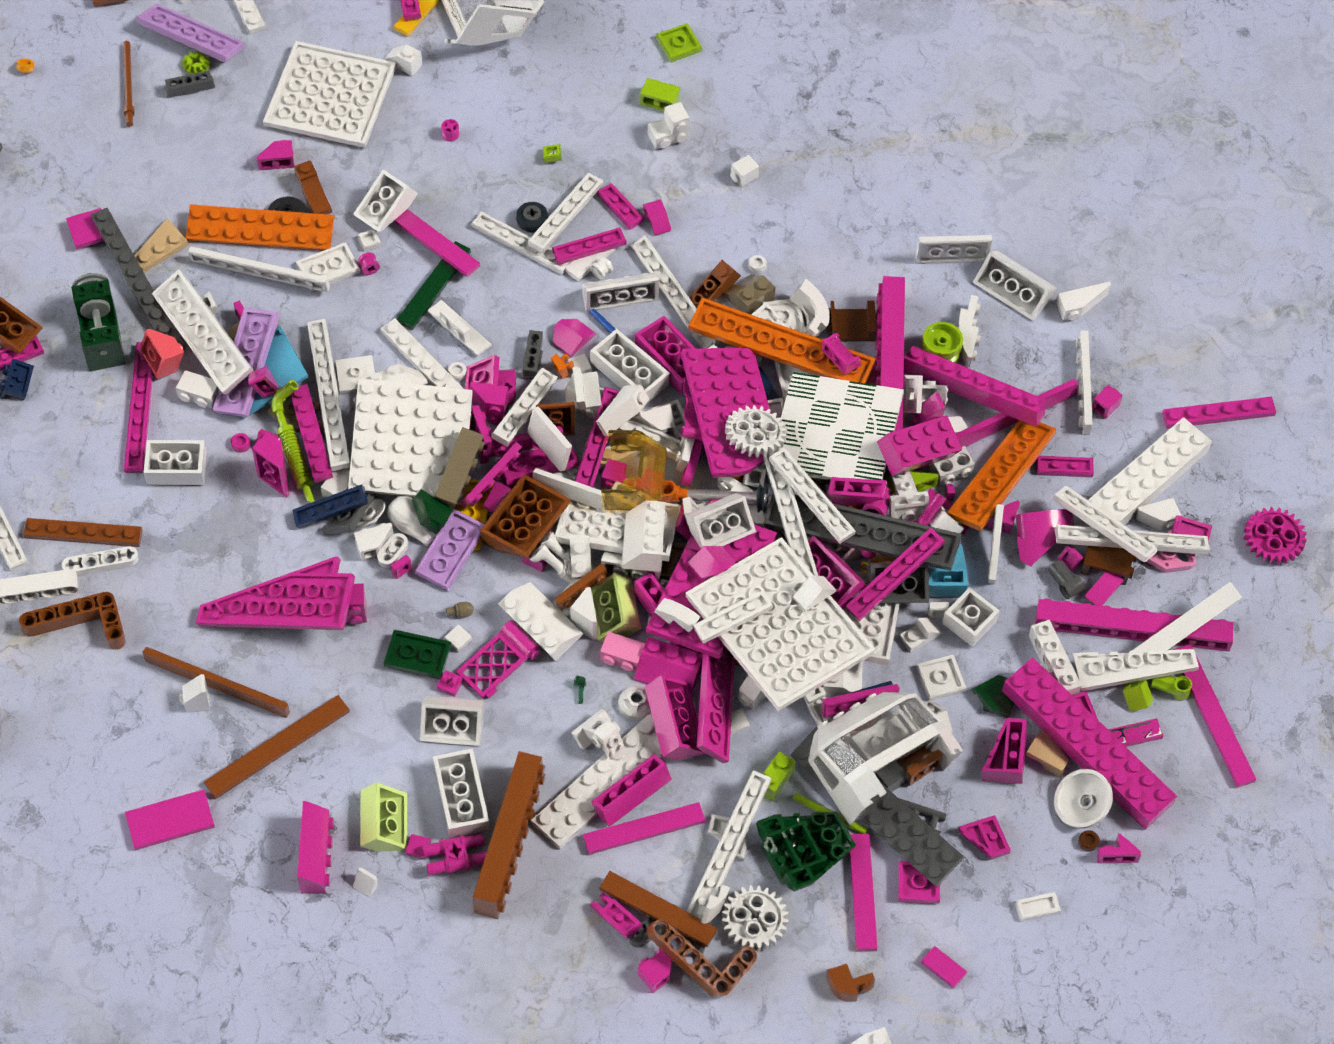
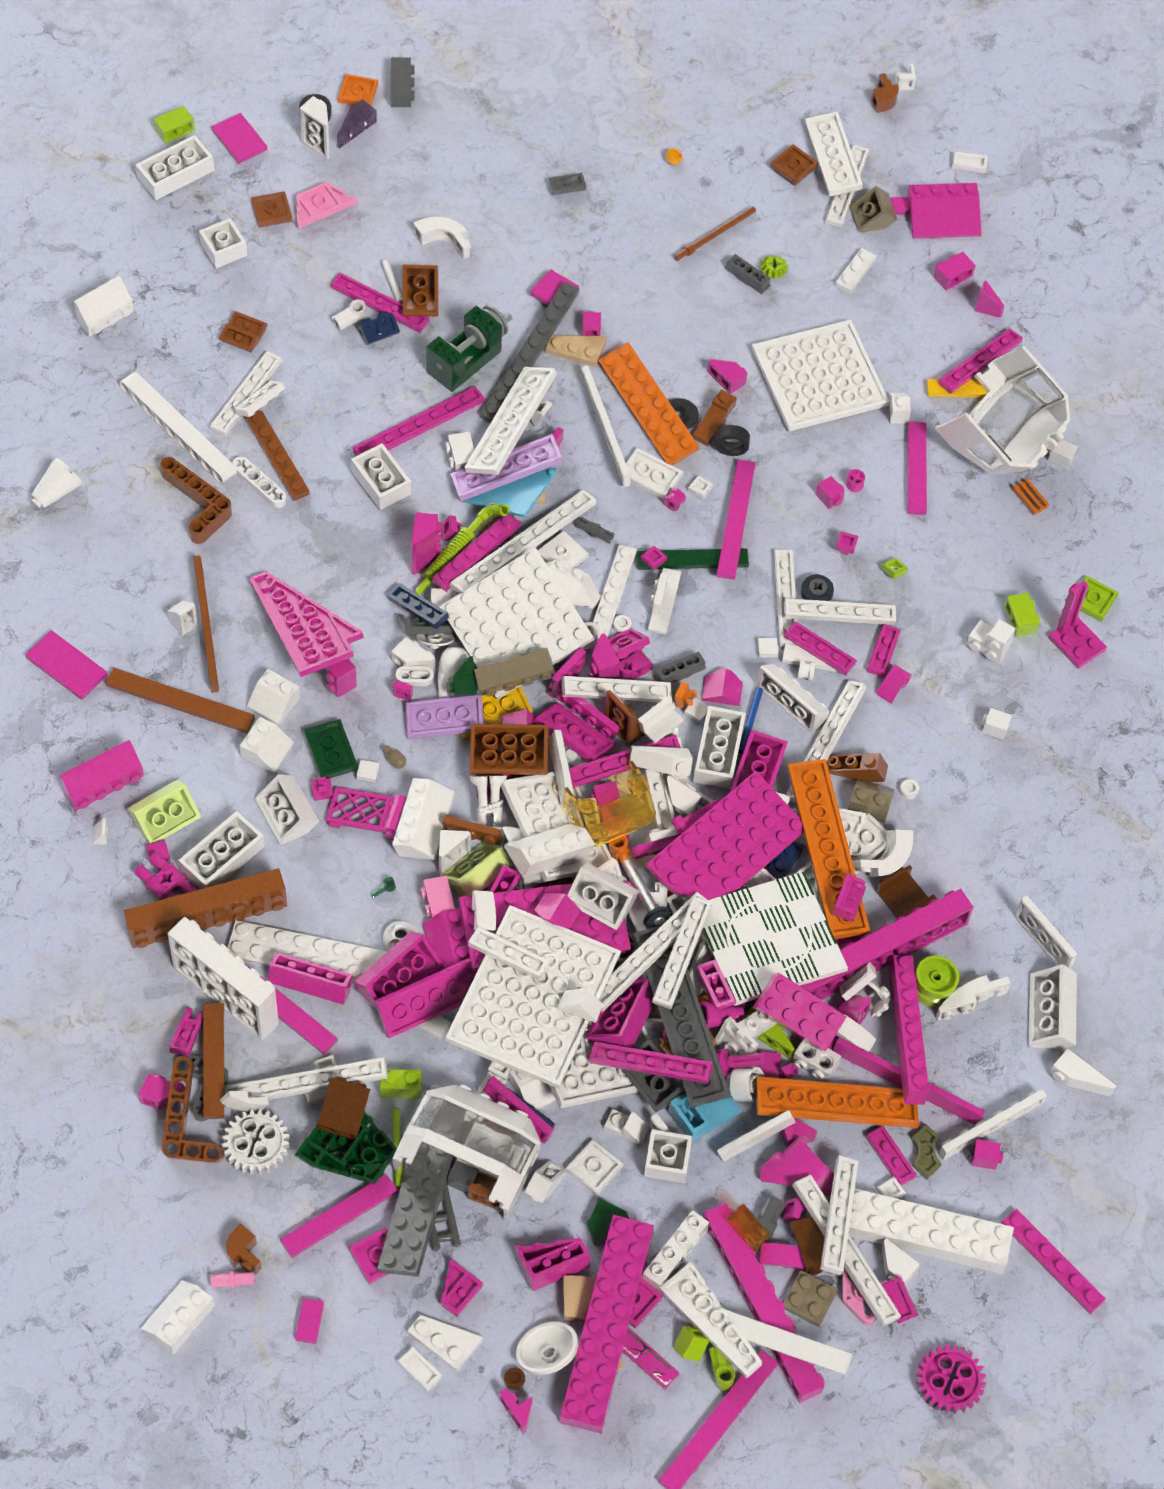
camera: 55 degrees right, 0 degrees up
(15, 511) = (259, 398): none -> white plate
(147, 221) = (591, 323): none -> dark pink brick
(161, 353) = (471, 407): coral slope -> none
(190, 32) = (796, 244): lavender plate -> none
(240, 442) = (438, 508): dark pink tile -> none
(263, 382) = (491, 487): dark pink slope -> none
(333, 669) = (274, 697): none -> white slope
(348, 188) = (732, 448): none -> black tyre
(352, 337) = (595, 530): none -> dark grey pin
(376, 702) = (266, 745): none -> white slope
(385, 201) = (741, 473): white slope -> none
(414, 310) = (653, 558): none -> dark pink tile
(449, 153) = (830, 492): none -> dark pink brick
(470, 83) = (917, 468): none -> dark pink tile
(487, 481) = (520, 701): dark pink plate -> none
(506, 169) = (846, 543): none -> dark pink tile
(549, 439) = (590, 721): white tile -> none
(556, 26) = (1033, 495): none -> orange tile
(558, 282) = (767, 647): none -> white tile
(580, 556) = (499, 811): white plate -> none
(594, 850) = (224, 977): none -> white brick
(604, 736) = (344, 927): white tile -> none
(705, 75) = (1072, 634): none -> dark pink bracket
(755, 431) = (731, 876): white gear -> none
(779, 826) = (343, 1108): none -> reddish brown panel
(870, 1006) = (233, 1279): none -> bright pink pin
(1024, 874) = (445, 1341): none -> white wing
(1069, 595) = (748, 1227): none -> clear orange slope
(1083, 444) = (925, 1142): none -> olive tile
(1093, 483) = (891, 1189): none -> white tile
(1149, 591) = (810, 1298): none -> dark tan plate

